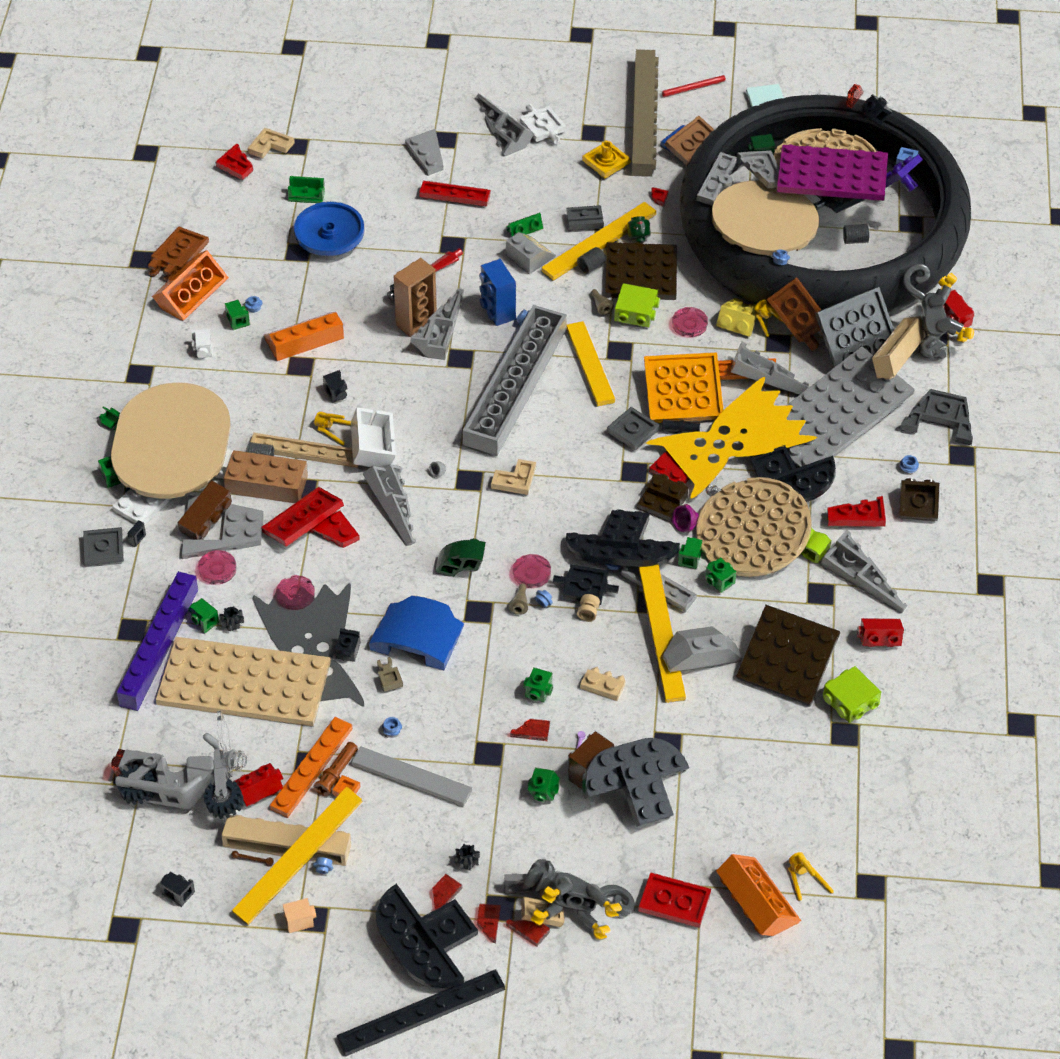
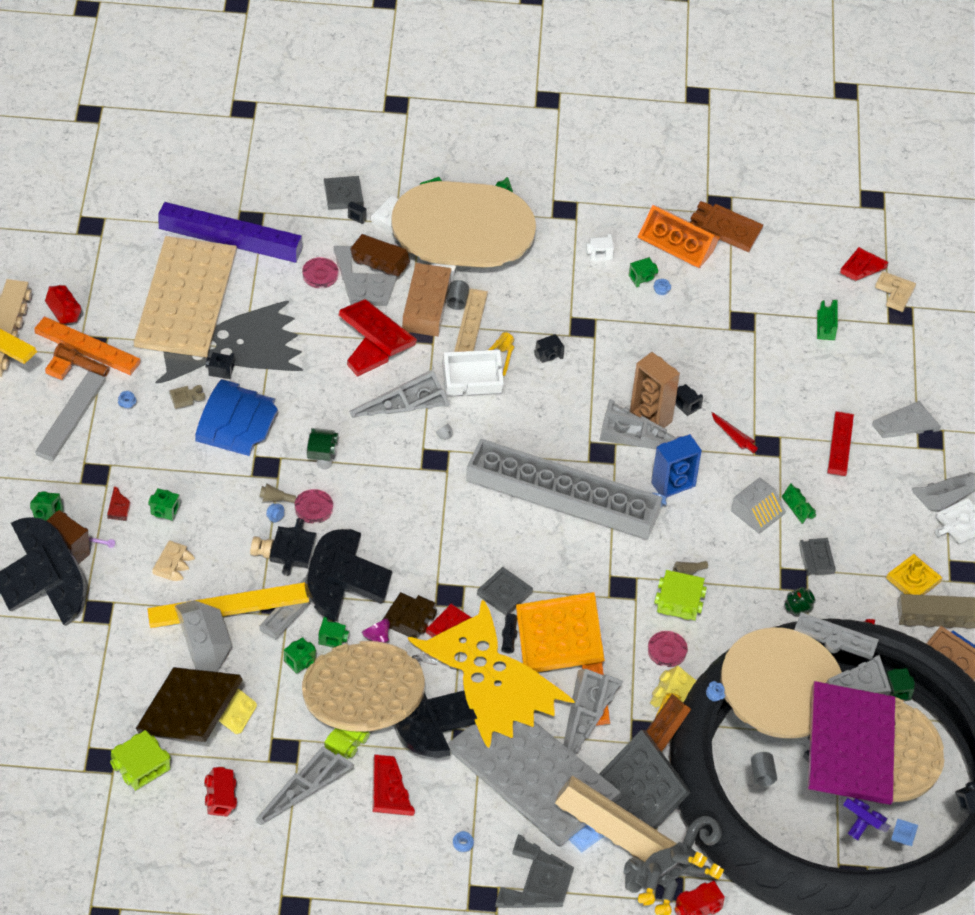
camera: 85 degrees right, 0 degrees up
(144, 773) = (62, 250): light grey piece -> none
(204, 615) = (259, 263): green brick -> none
(231, 618) = (255, 282): black gear -> none
(295, 592) = (288, 328): clear pink tile -> none
(305, 335) = (620, 324): orange slope -> none
(329, 228) = (767, 336): blue dish -> none
(515, 482) = (429, 494): tan plate -> none
(590, 363) = (599, 559): yellow tile -> none
(591, 260) = (748, 559): dark grey piece -> none
(609, 233) = (783, 568): yellow tile -> none
(641, 266) = (740, 604): dark brown plate -> none
(919, 499) = (407, 843): dark brown plate -> none

